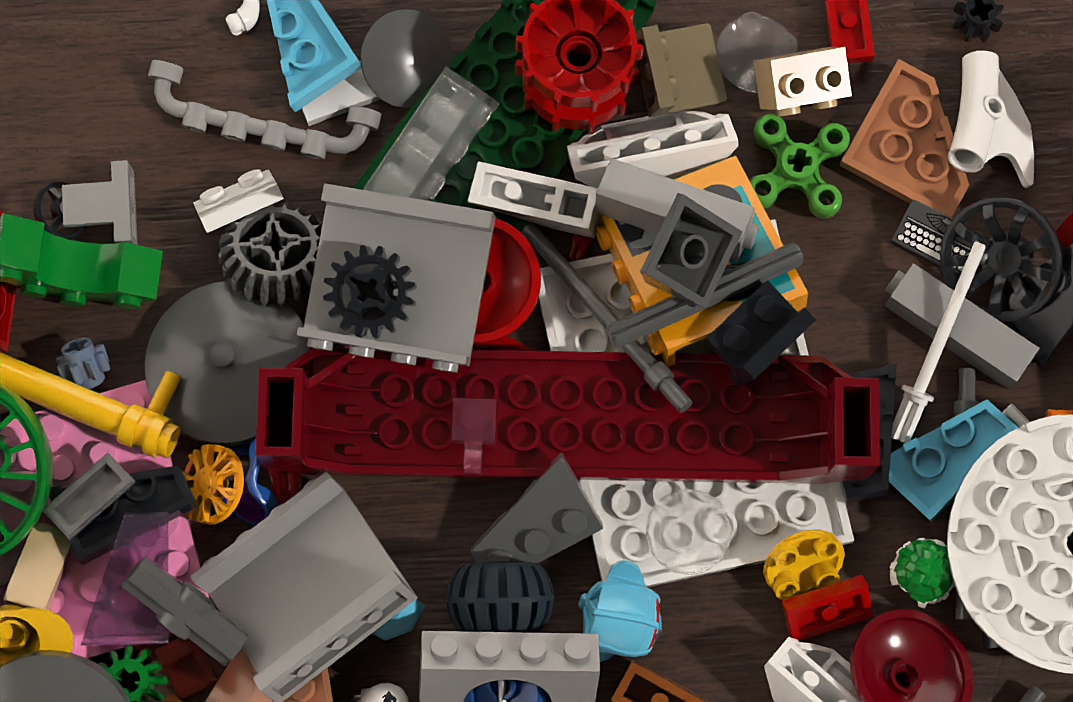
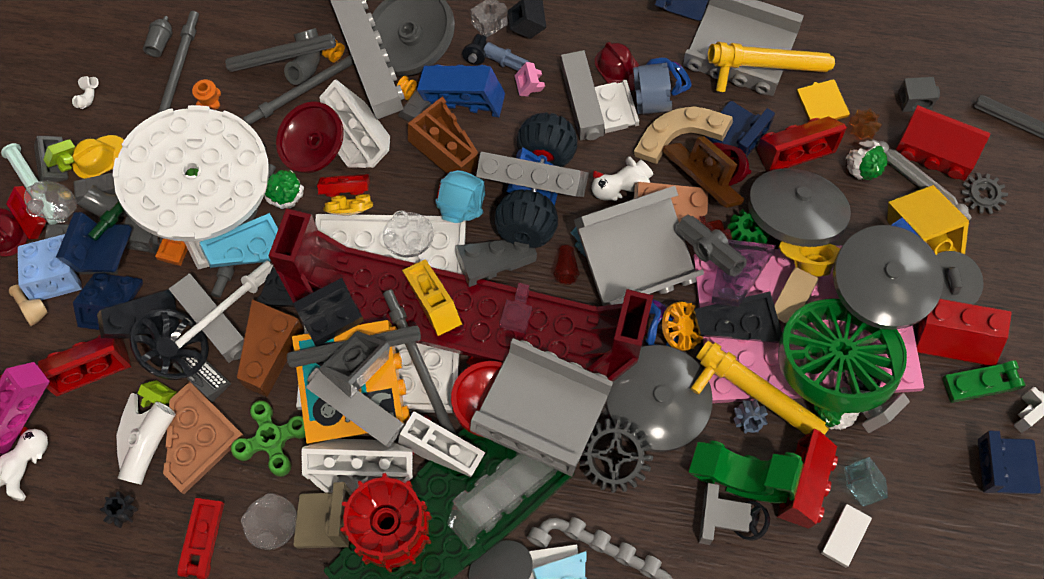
camera: 160 degrees left, 10 degrees down
(89, 496) = (758, 325): flat silver tile -> none
(226, 205) = (633, 497): white plate -> none
(356, 307) = (558, 389): black gear -> none
(419, 550) = (566, 266): none -> clear red cone
(615, 417) = (432, 297): none -> yellow slope
(802, 79) = (246, 489): brick -> none
(854, 300) = (266, 347): none -> dark orange wedge
(993, 184) = (155, 392): none -> lime tile

